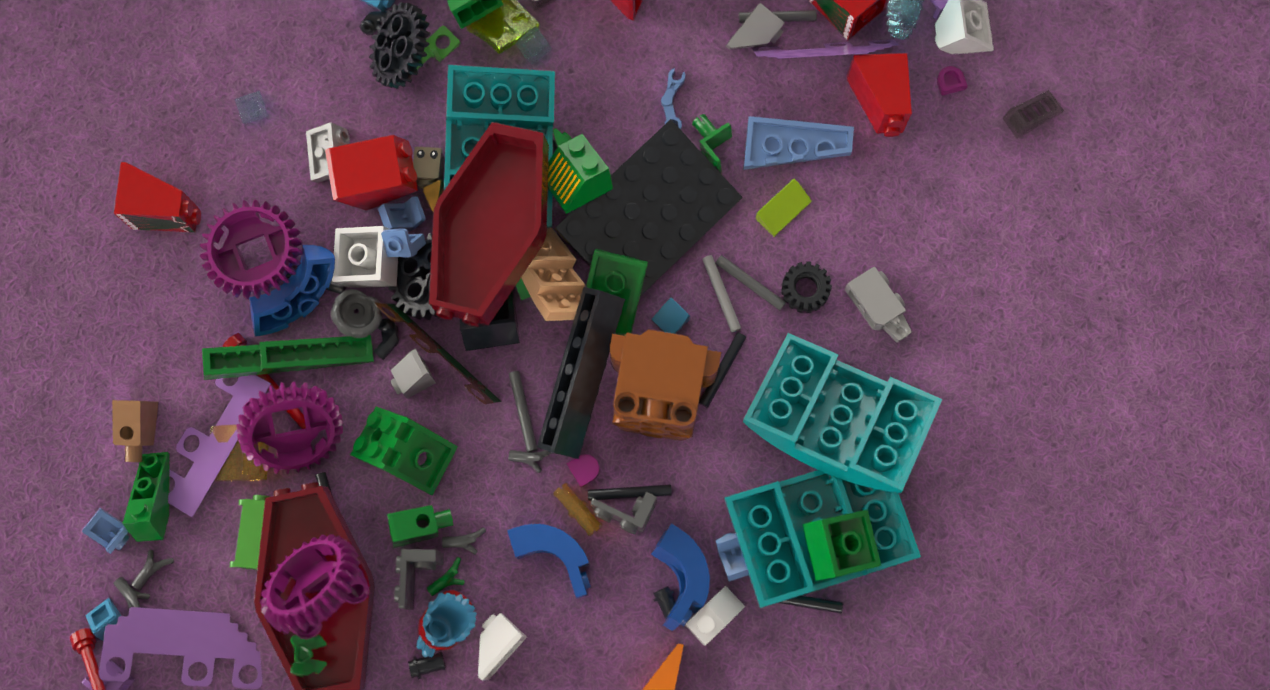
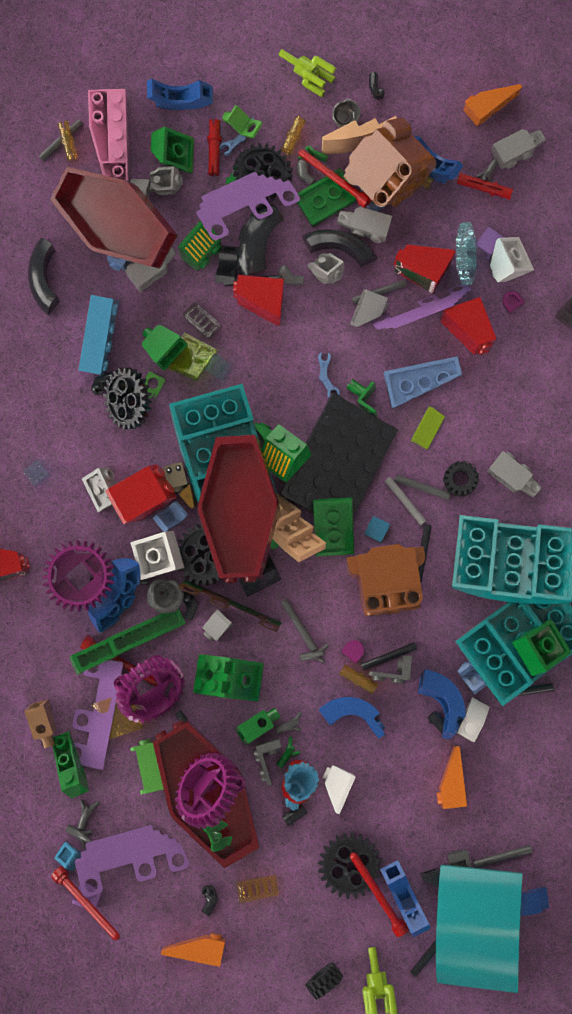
camera: 20 degrees left, 5 degrees up
(106, 531) = (48, 798): medium blue bracket -> none
(401, 244) = (181, 539): medium blue bracket -> none
(580, 373) = (332, 588): black brick -> none

